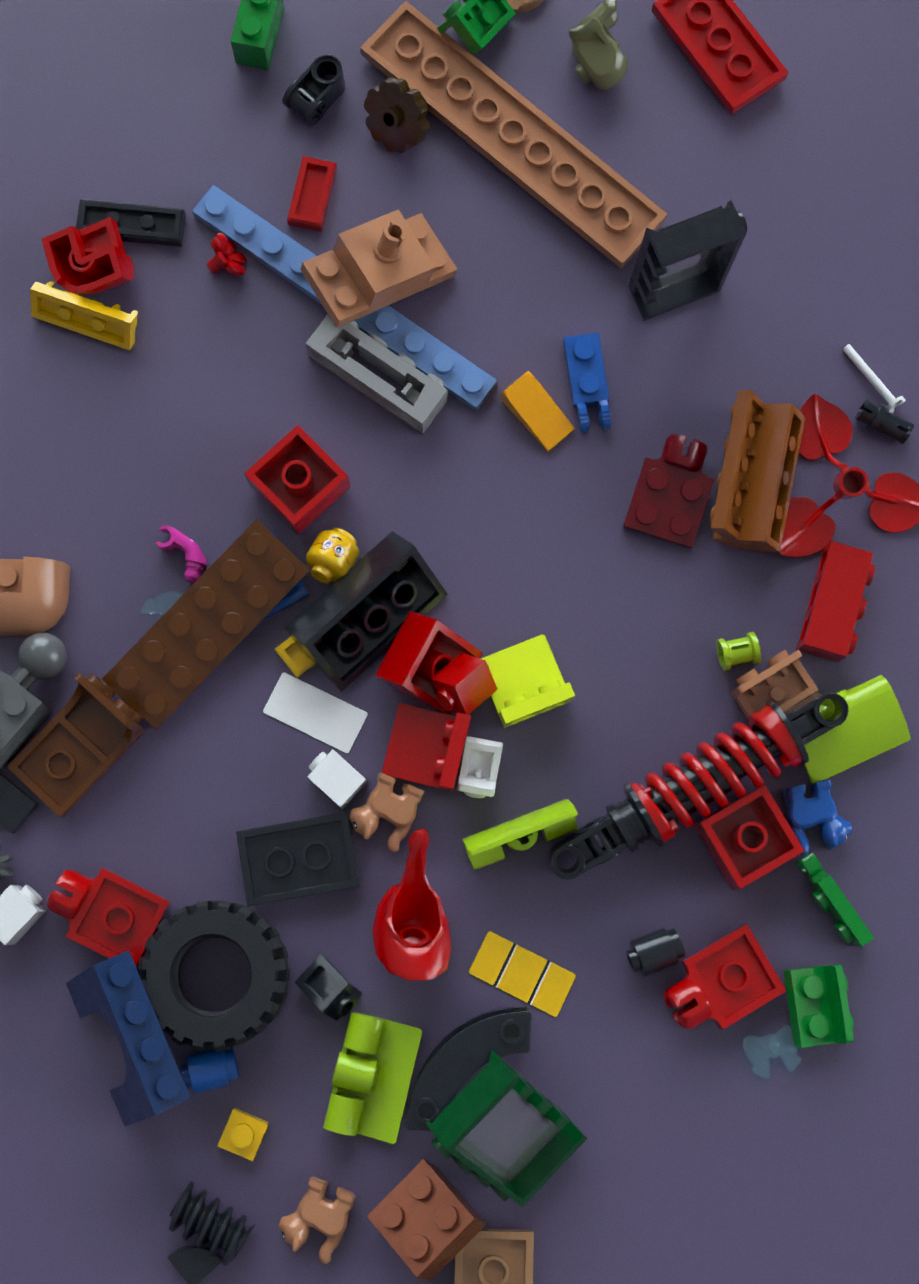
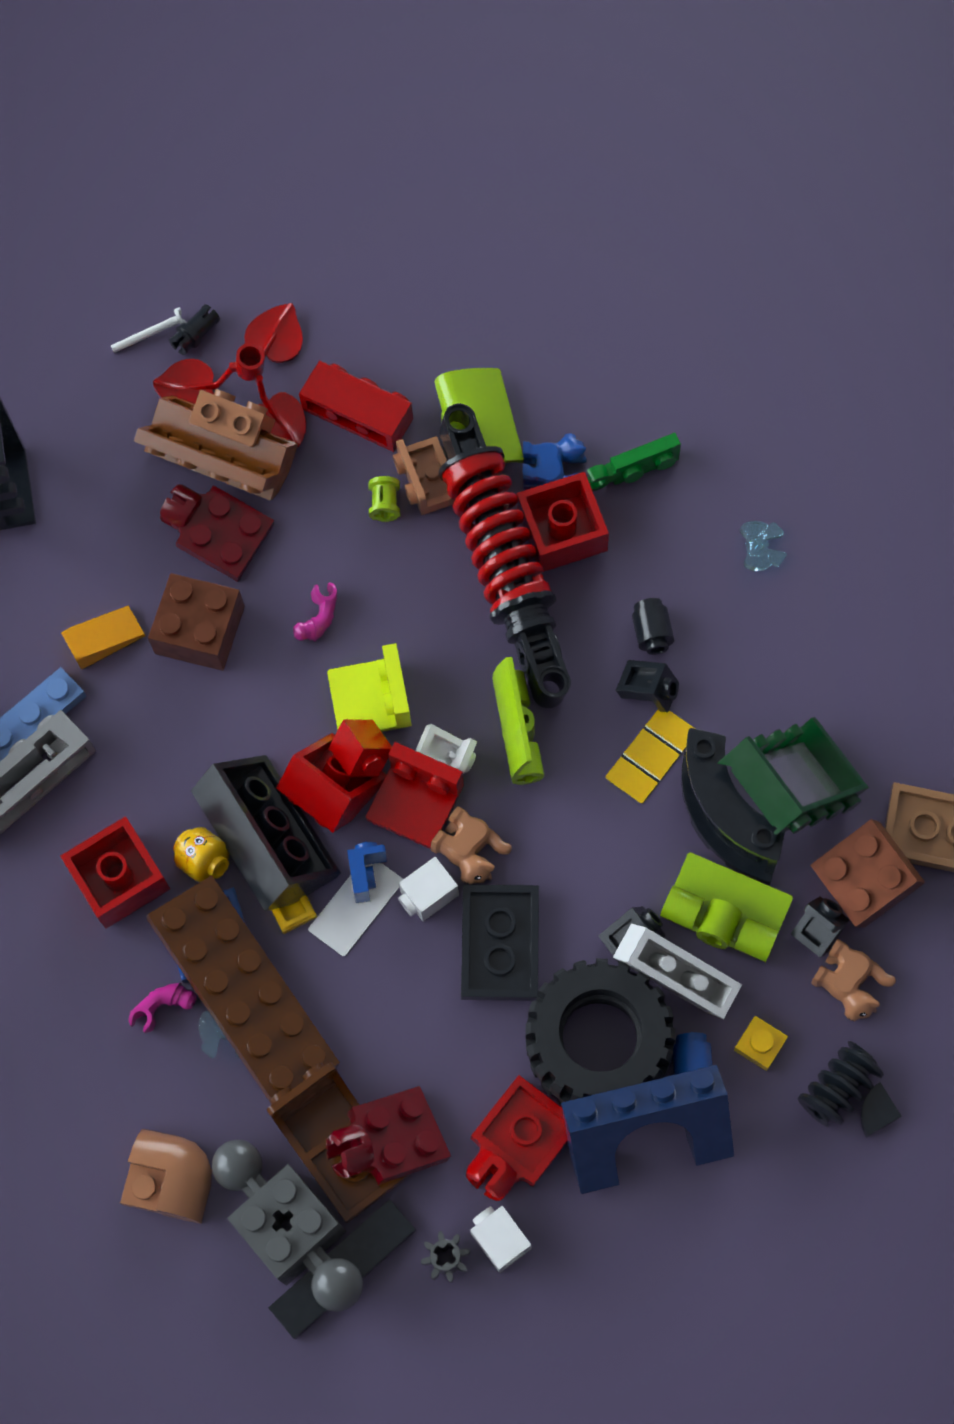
camera: 70 degrees left, 10 degrees down
(87, 791) = (388, 1138): none -> dark red plate
(288, 1040) = (677, 971): none -> white brick
(338, 712) = (363, 877): none -> blue bracket
(367, 1178) = (820, 925): none -> black bracket
(408, 913) = (571, 835): red hat -> none
(567, 496) = (196, 621): none -> copper brick
(587, 378) = (82, 584): blue hinge -> none
(587, 613) = (316, 626): none -> dark pink piece
(592, 958) = (649, 683): none -> black bracket
(724, 982) = (691, 572): red plate -> none
(787, 477) = (228, 419): none -> nougat bracket
(818, 1005) = (727, 494): green bracket -> none

